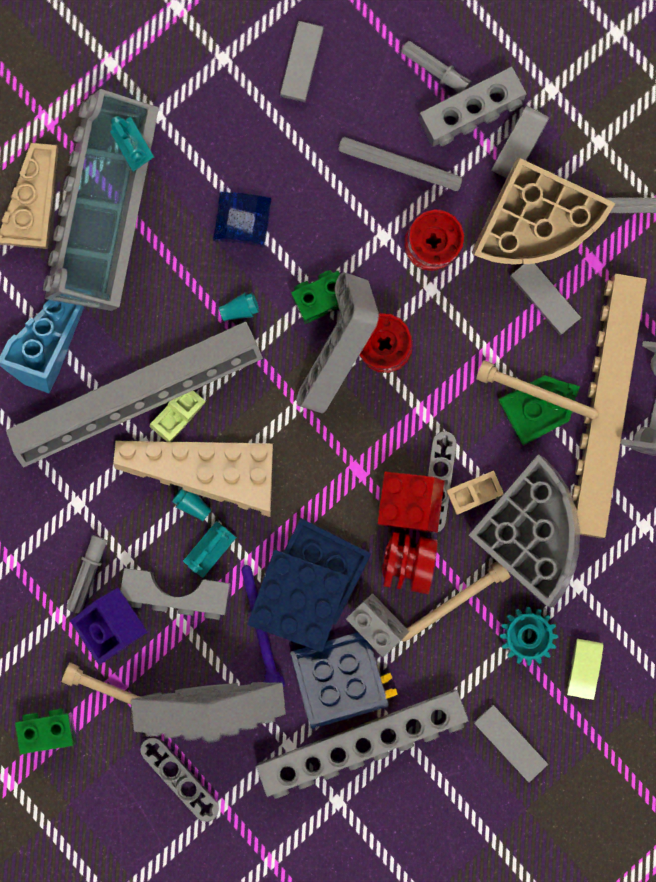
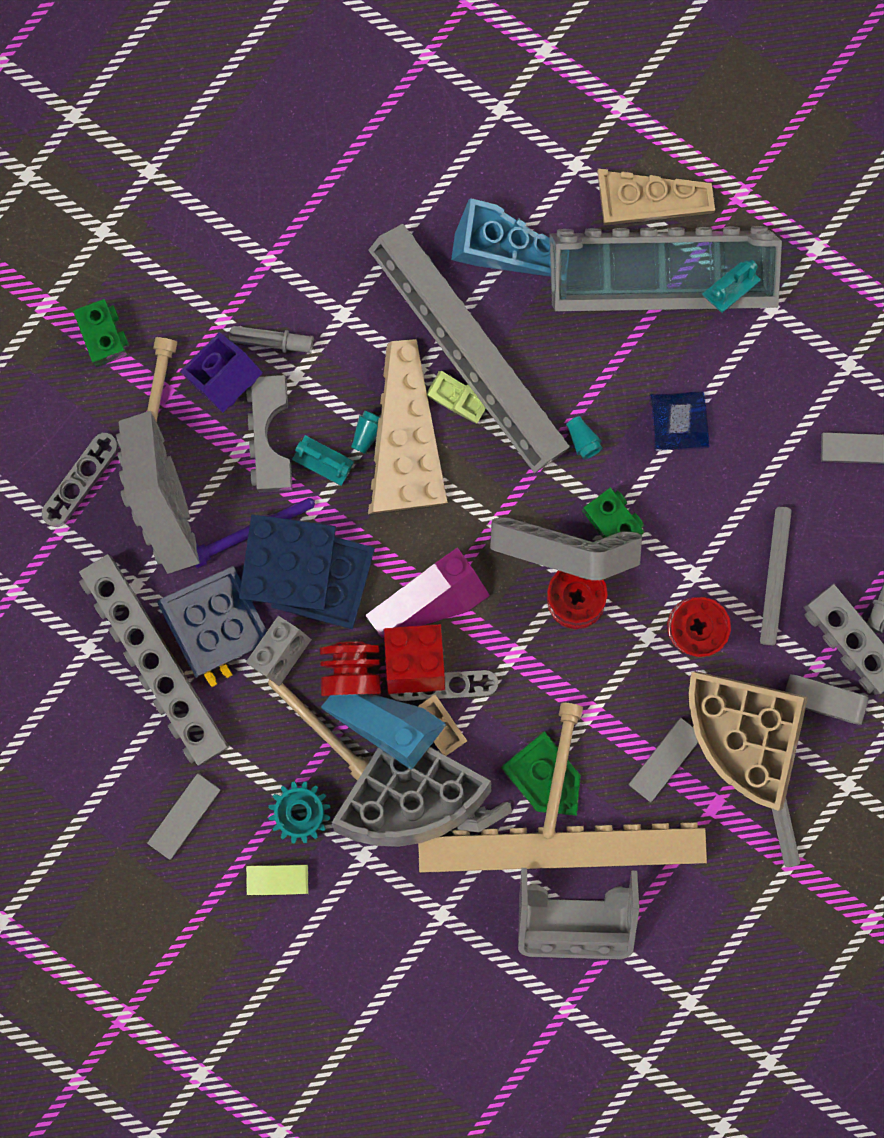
camera: 75 degrees right, 0 degrees up
(354, 469) = (436, 594): none -> magenta wedge
(468, 535) = (391, 725): none -> dark azure wedge
(567, 467) = (484, 818): none -> light grey tile

